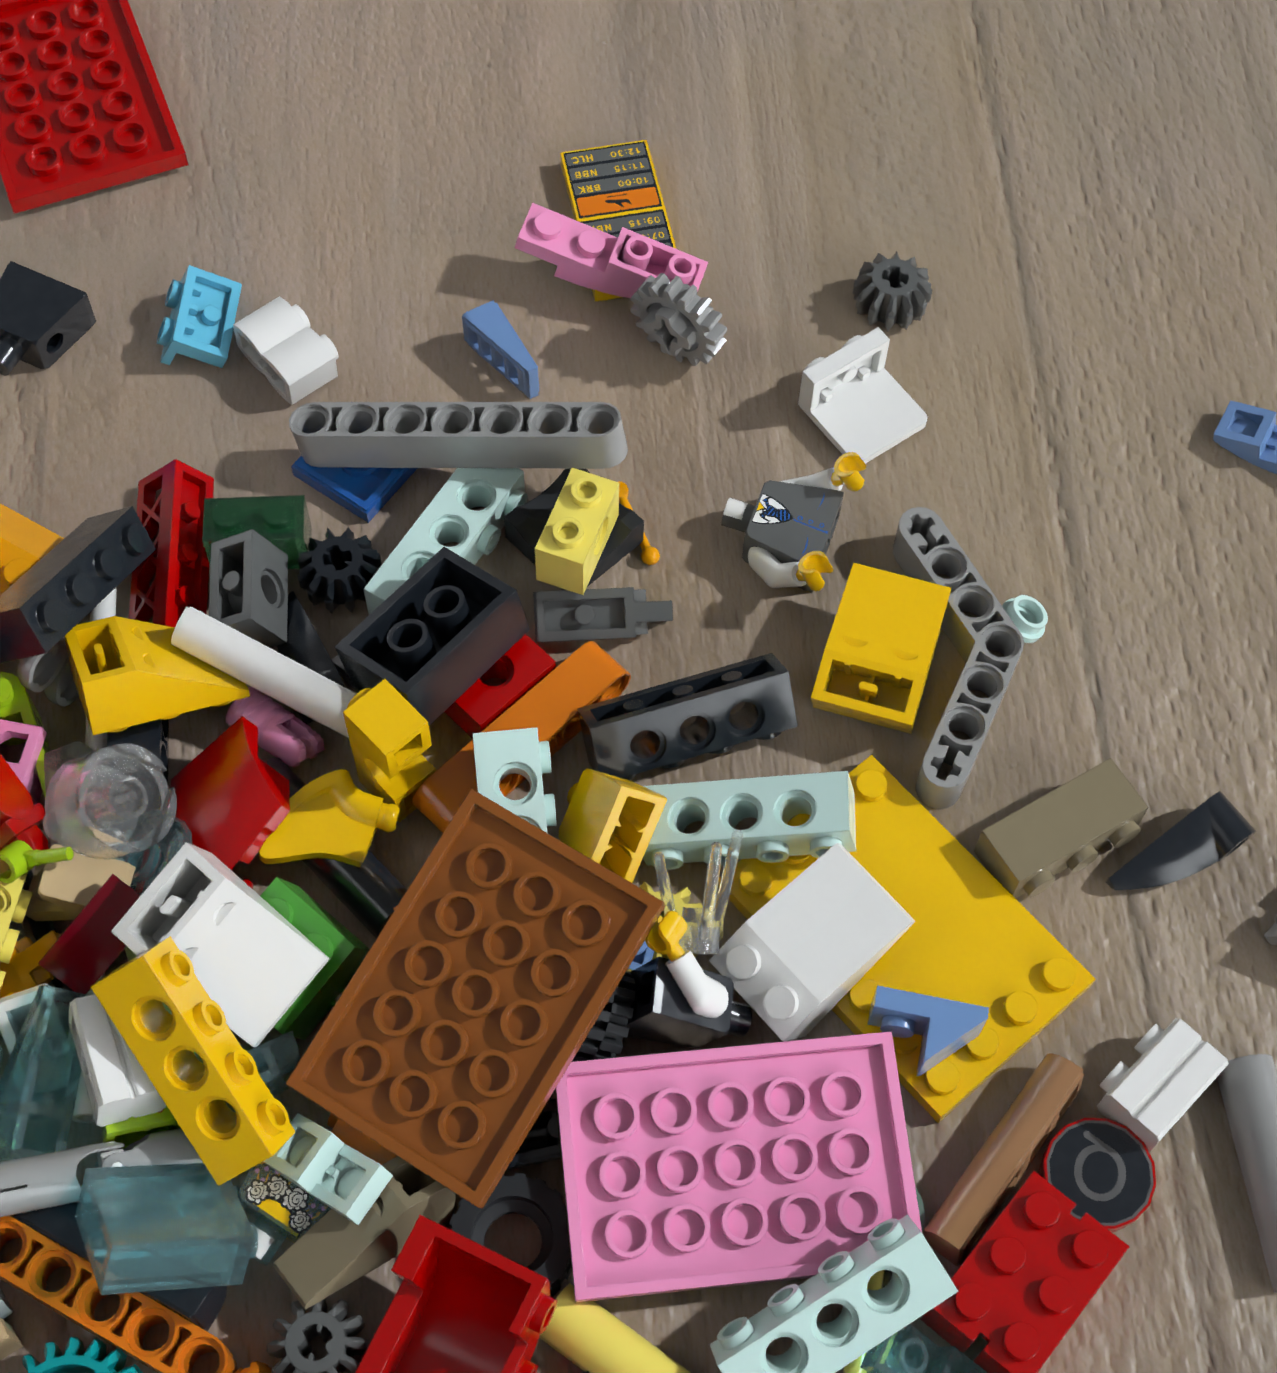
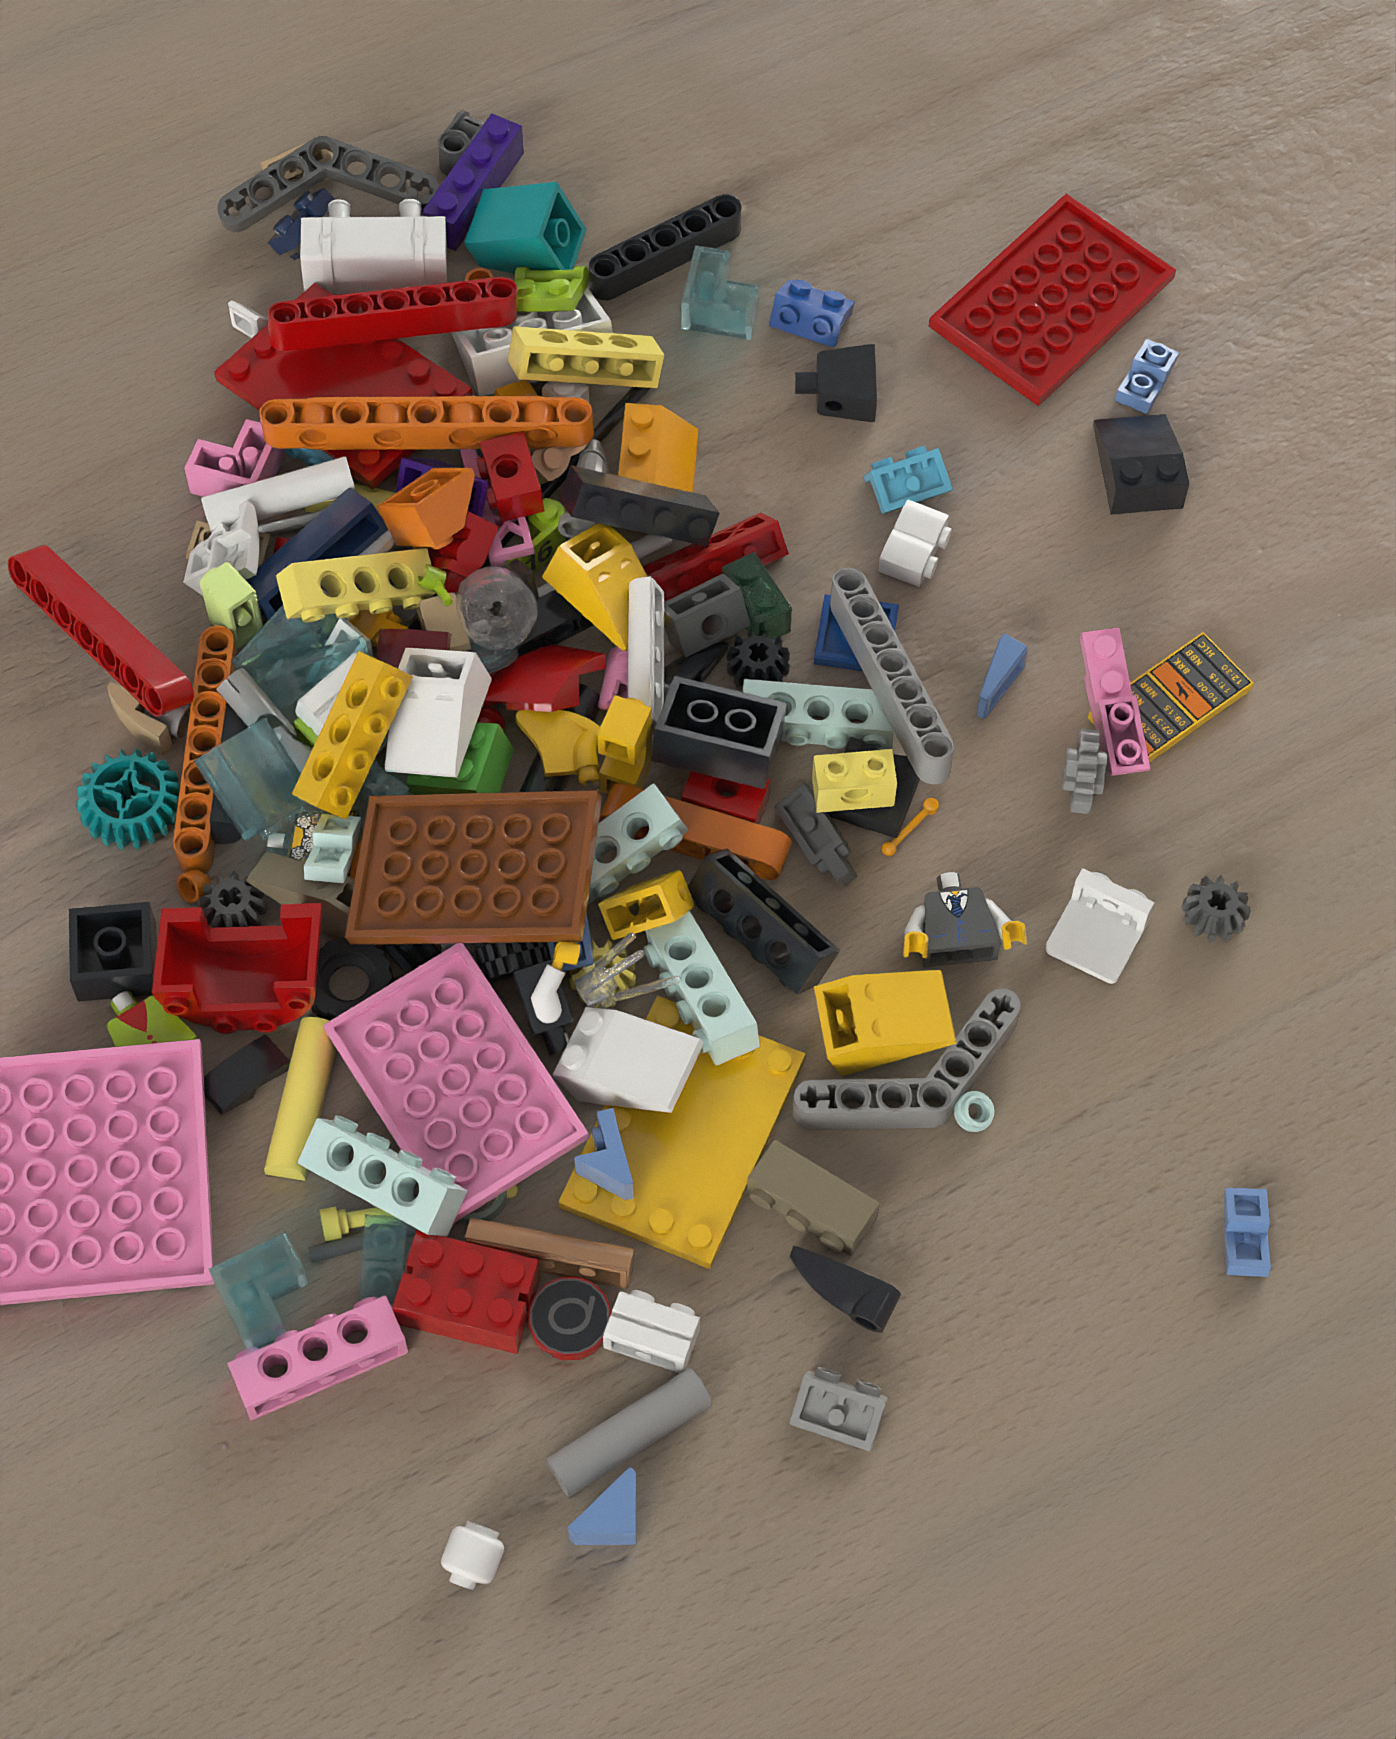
camera: 65 degrees right, 0 degrees up
(220, 58) = (1147, 376): none -> medium blue slope
(325, 108) = (1141, 464): none -> black slope

